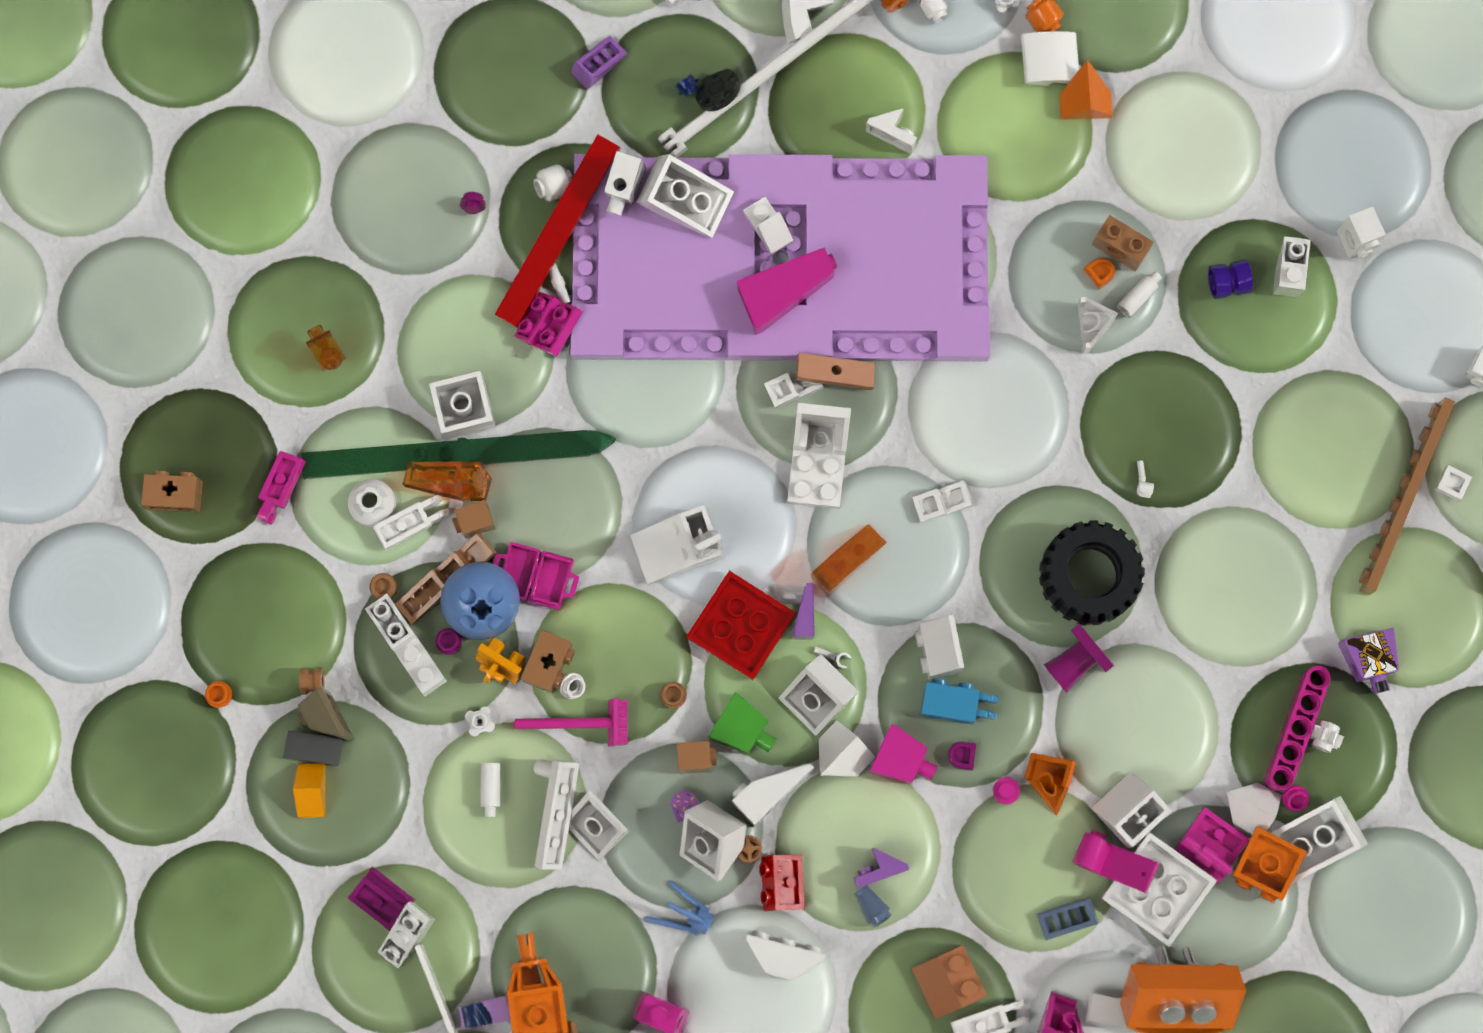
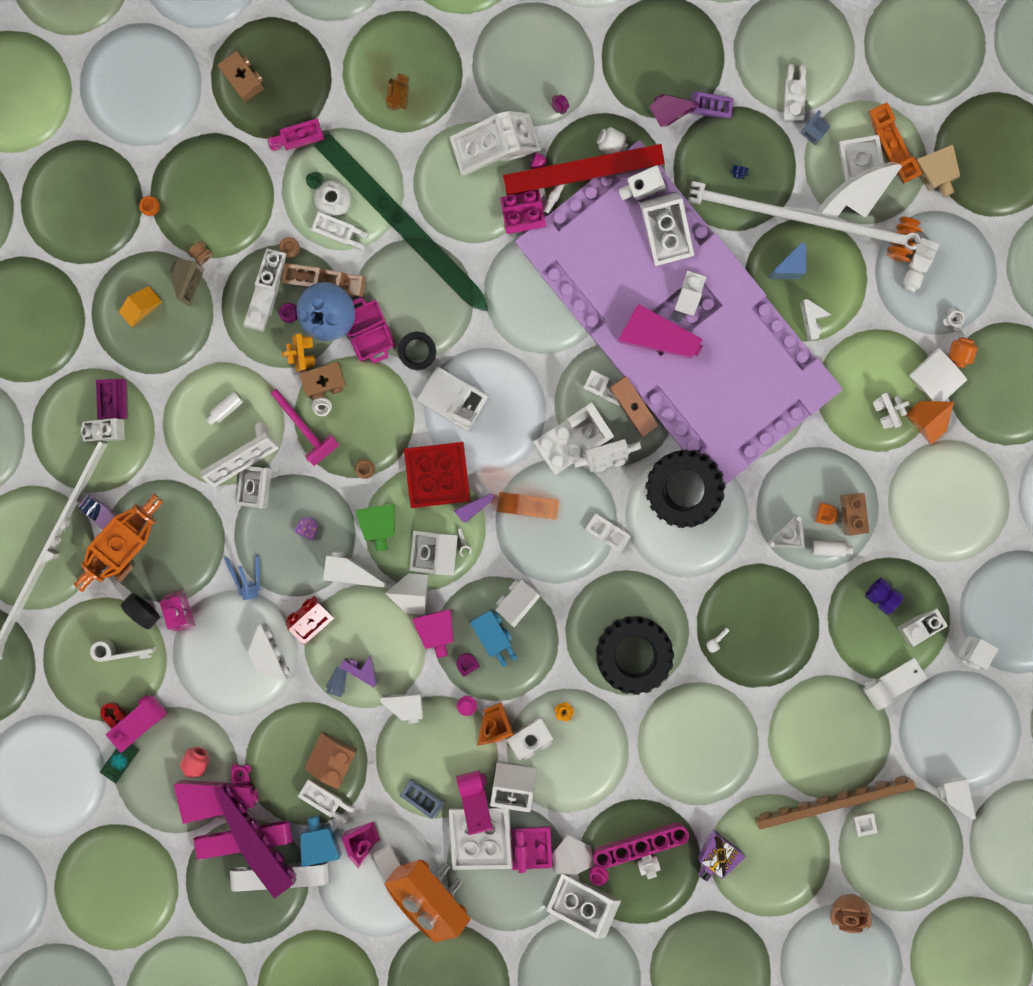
camera: 55 degrees right, 10 degrees up
(313, 748) = (162, 286): dark grey slope -> none
(338, 504) = (314, 180): none -> clear green hinge
(449, 479) = (381, 232): clear orange slope -> none
(453, 290) = (498, 138): none -> white bracket
(462, 405) = (431, 202): white brick -> none
(473, 519) = (370, 267): medium nougat brick -> none
(473, 717) = (257, 375): white plate -> none
(510, 269) = (538, 161): none -> dark pink hinge
(569, 100) = (671, 108): none -> magenta slope
(591, 523) = (420, 336): none -> black tyre
(696, 757) = (337, 512): medium nougat brick -> none
(711, 839) = (298, 560): white slope -> none
(716, 88) = (751, 190): pearl dark grey wheel -> none
(750, 844) = (309, 587): medium nougat wheel -> none
(824, 106) = (792, 266): none -> medium blue slope
(864, 436) = (607, 455): none -> white plate
(956, 854) = (405, 706): none -> white slope
(961, 420) = (662, 503): none -> black tyre
(1033, 126) = (886, 401): none -> white hips
(1077, 660) = (576, 688): magenta plant -> none
(1086, 766) = (539, 730): none -> white brick
(1095, 688) = (564, 706): none -> light orange plate
(1268, 865) = (545, 890): orange plate -> none
(1328, 341) = (885, 688): none -> white door

